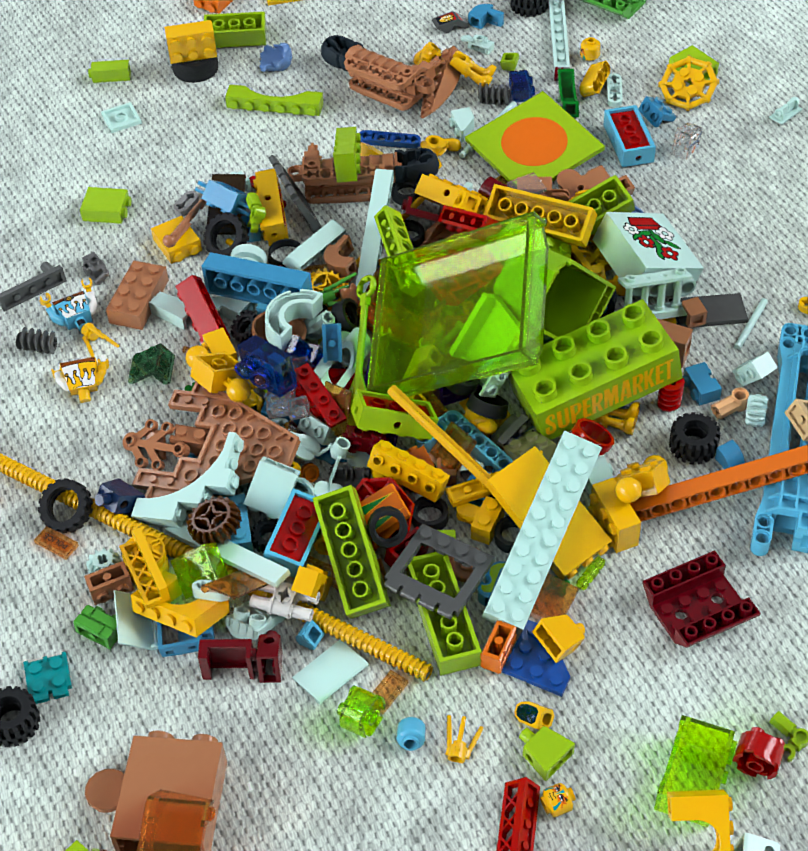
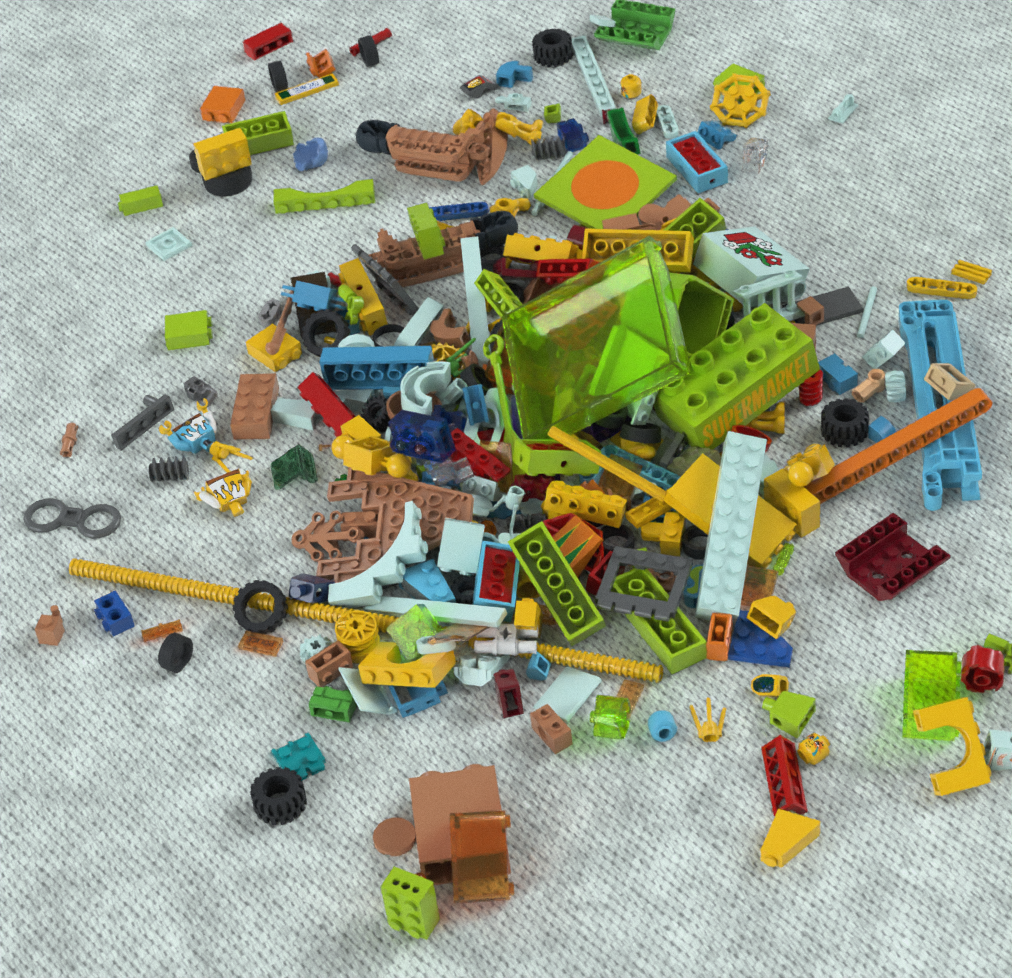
camera: 10 degrees left, 5 degrees down
(150, 564) = (372, 638): yellow fence -> none
(214, 520) = (415, 585): reddish brown gear -> none
(226, 654) = (469, 698): dark red panel -> none
(299, 709) = (551, 728): none -> nougat brick
(387, 542) = (597, 562): black tyre -> none
(467, 201) = (562, 250): yellow brick -> none
(528, 183) = (615, 221): clear piece -> none

